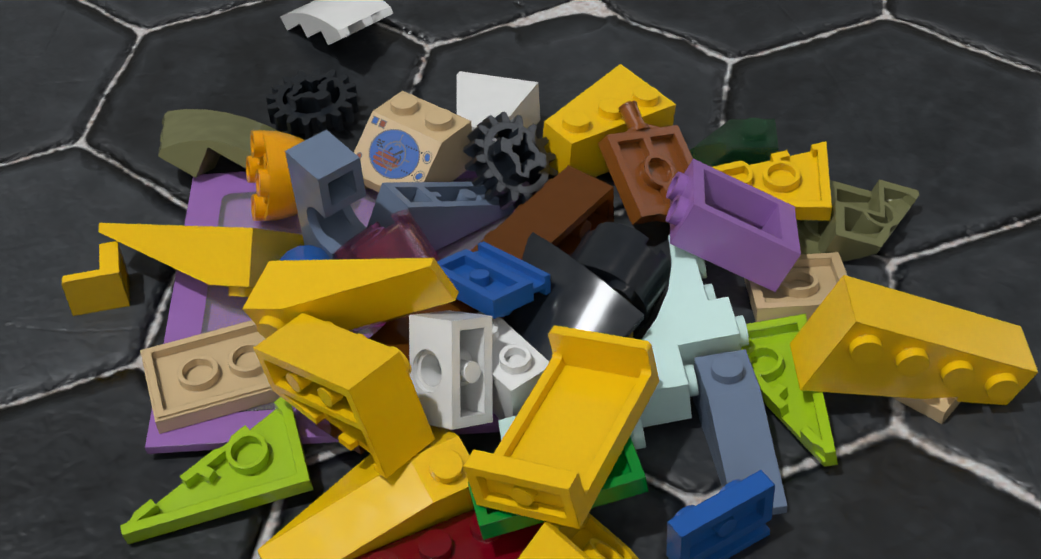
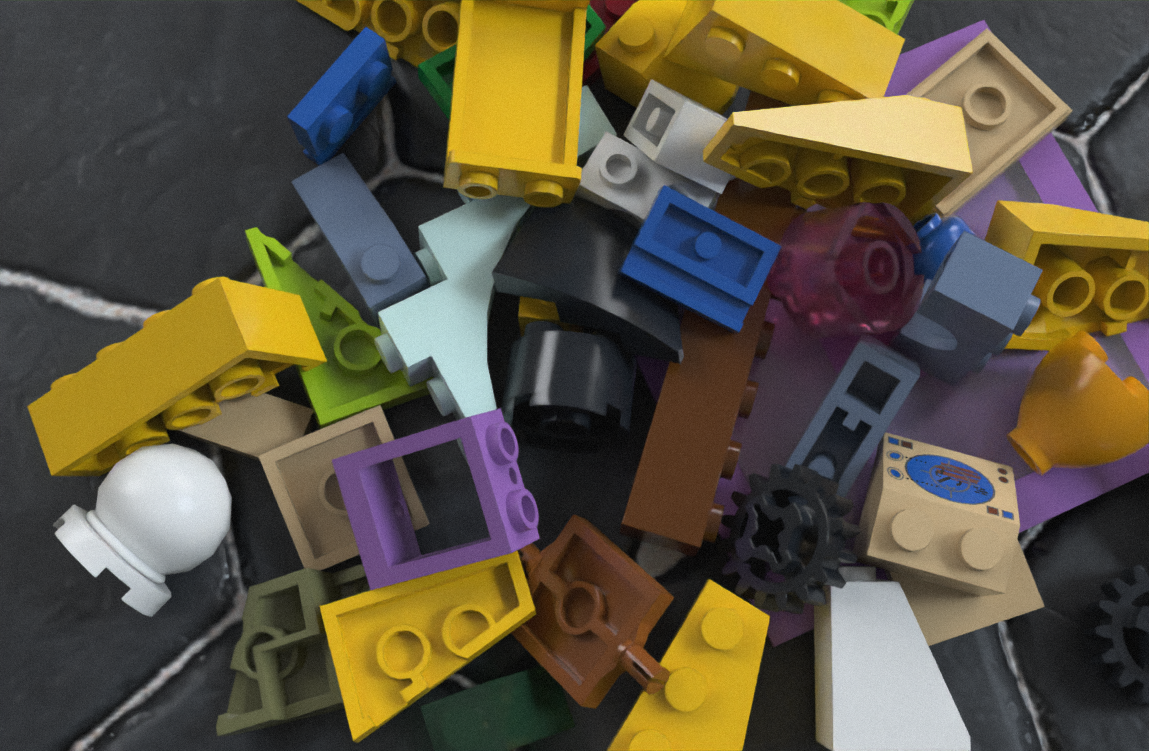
camera: 155 degrees right, 30 degrees up
(956, 268) = (152, 519): none -> white tile

